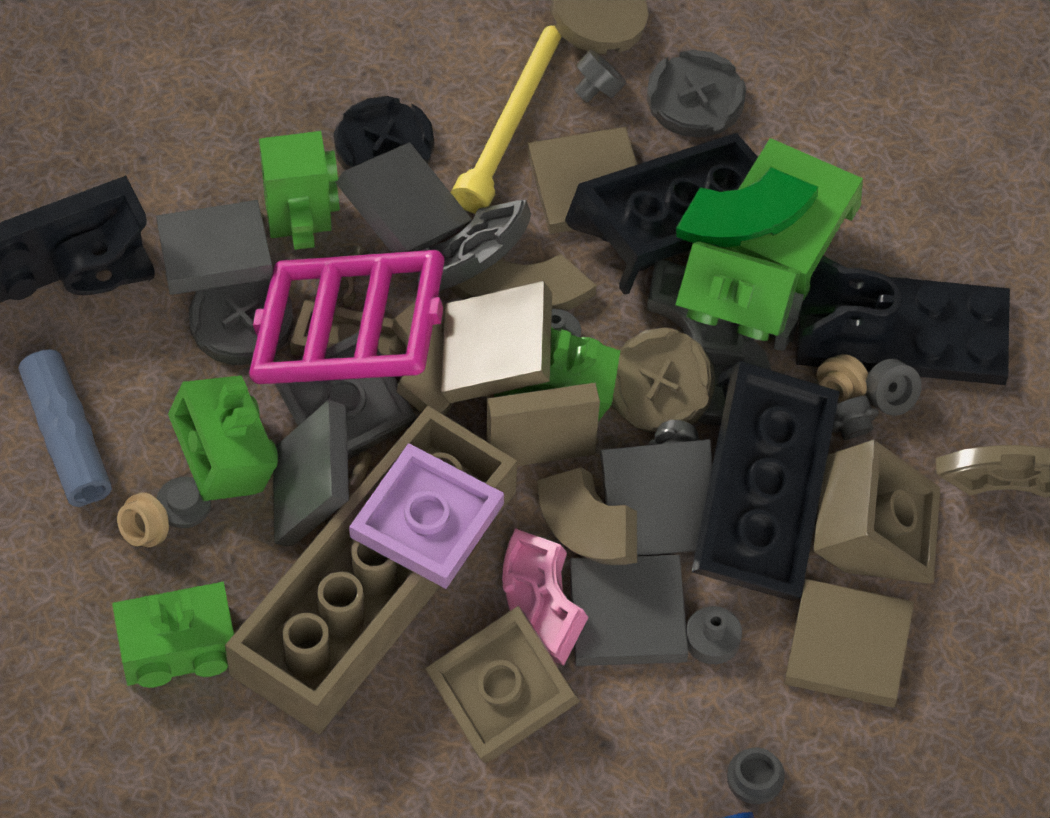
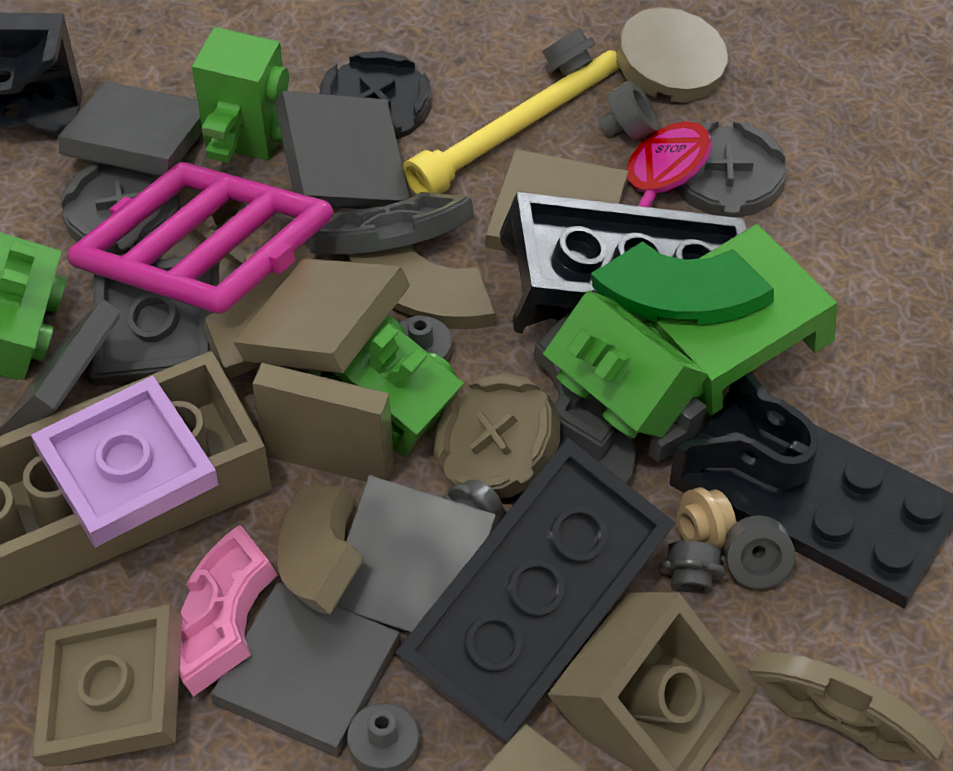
camera: 30 degrees right, 5 degrees down
(519, 42) = (569, 53): none -> dark grey plate
(651, 105) = (668, 159): none -> piece

